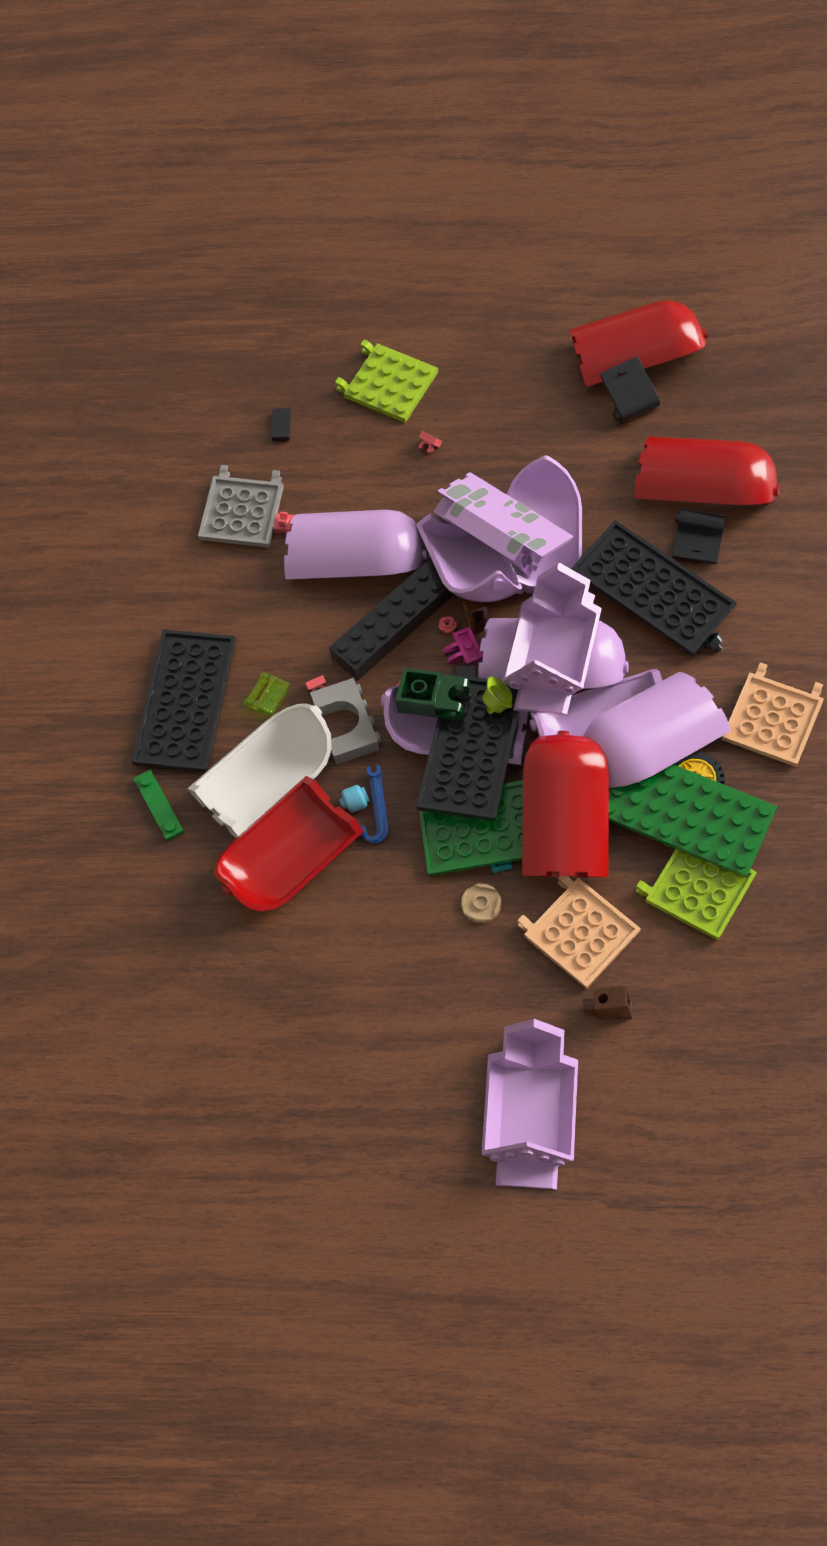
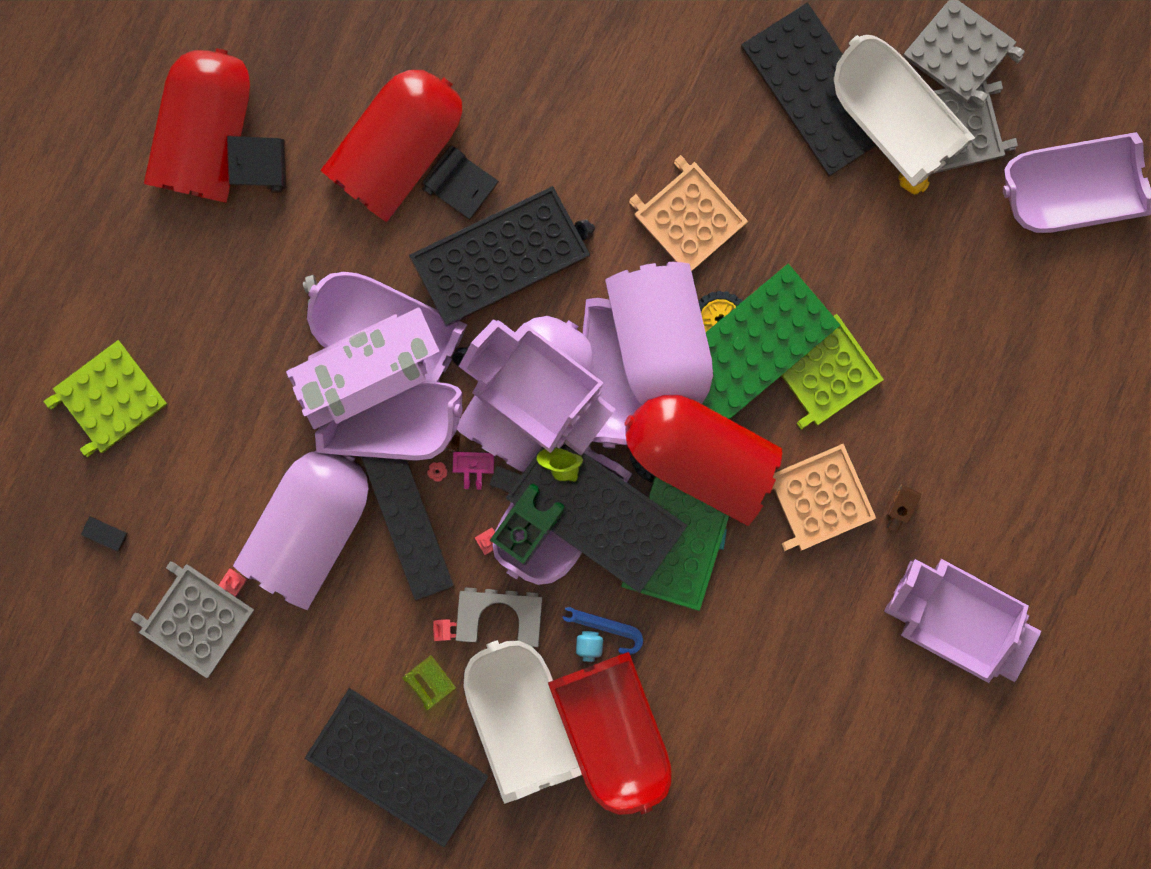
camera: 75 degrees left, 20 degrees up
(158, 805) = (502, 838): green plate -> none
(430, 440) = (207, 389): coral tile -> none
(481, 903) = (748, 574): tan tile -> none

